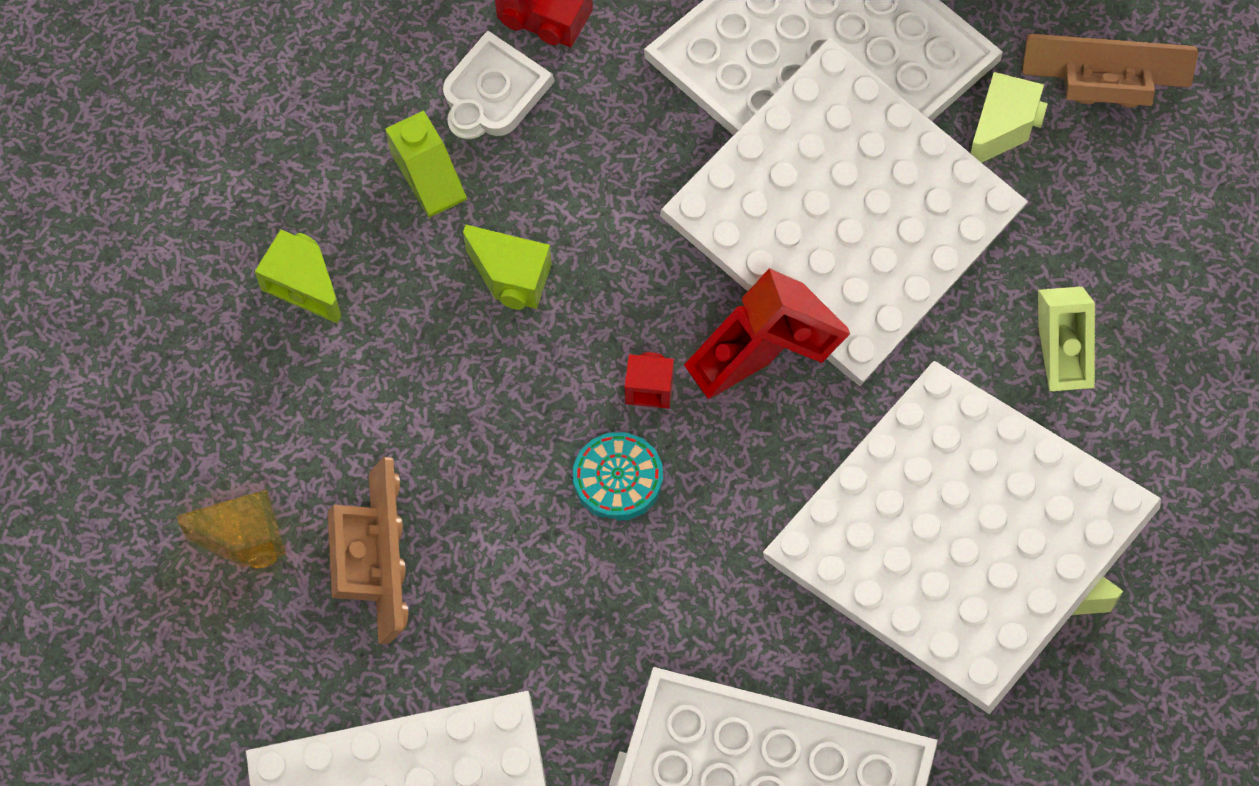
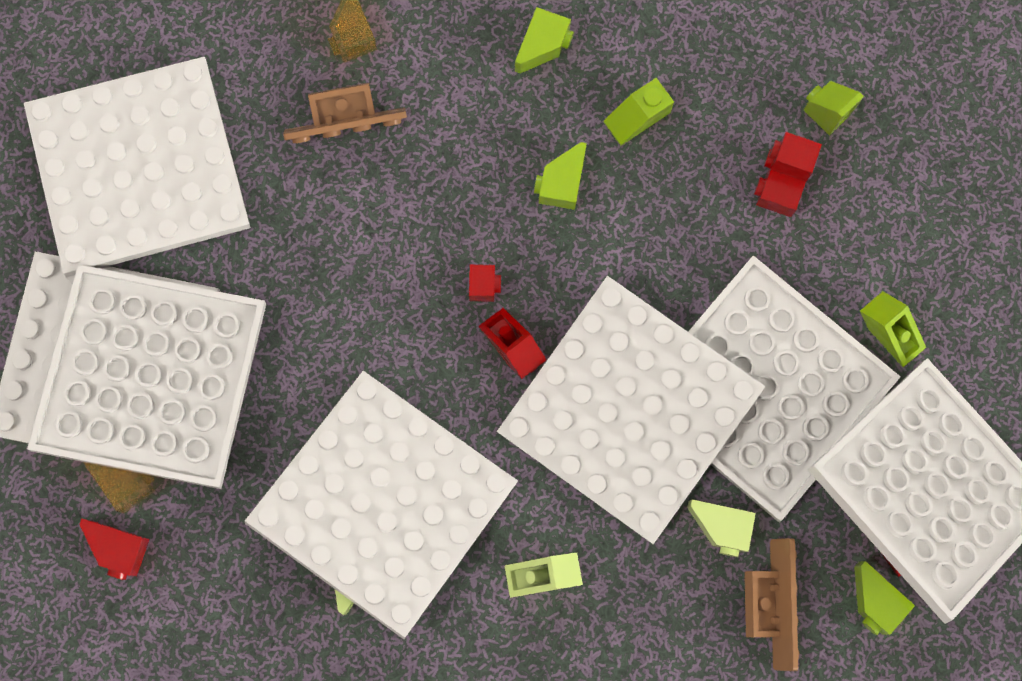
camera: 80 degrees right, 15 degrees up
(493, 89) = (710, 152): white plate -> none
(617, 476) = (413, 269): teal tile -> none
(793, 317) = (529, 373): red slope -> none

